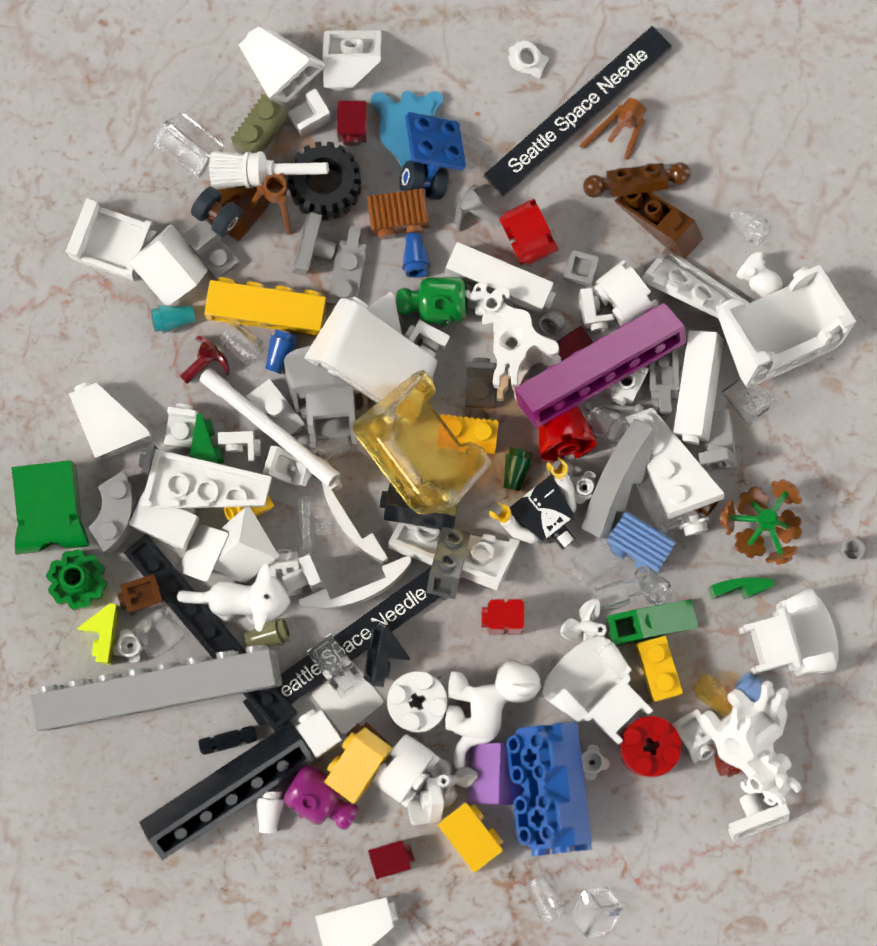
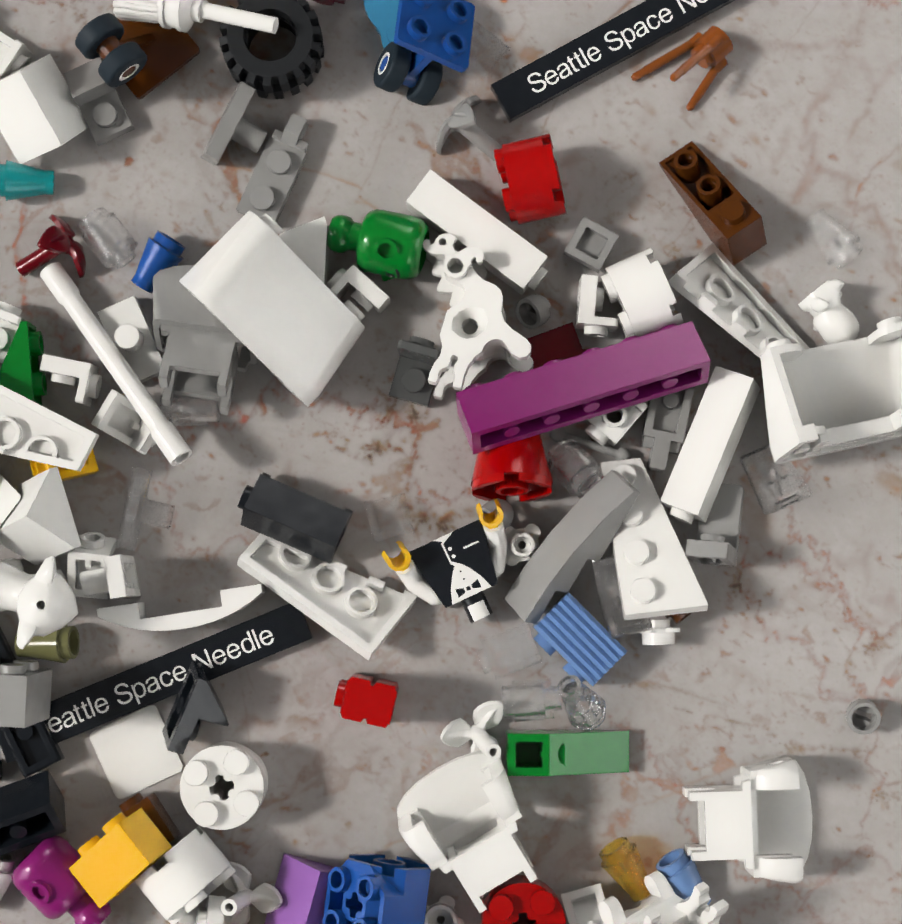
camera: 10 degrees right, 5 degrees up
(265, 307) = (149, 196): yellow brick -> none
(274, 190) = (196, 40): dark orange plant -> none
(318, 733) = (79, 798): white brick -> none
(335, 666) = (125, 710): clear slope -> none
(367, 545) = (213, 555): white slope -> none
(398, 213) = (361, 110): dark orange brick -> none
(415, 256) = (371, 176): blue cone -> none
(419, 448) = (306, 443): clear yellow windscreen -> none
(448, 562) = (312, 604): dark grey bracket -> none
(473, 431) = (381, 435): yellow brick -> none
(513, 683) = (358, 794): white animal -> none
(516, 468) = (437, 495): dark green cone -> none
(637, 179) = (696, 141): reddish brown plate -> none
(658, 669) = (560, 819): yellow brick -> none
(748, 587) = (709, 733): green slope -> none
(780, 527) = (778, 662): dark orange plant -> none

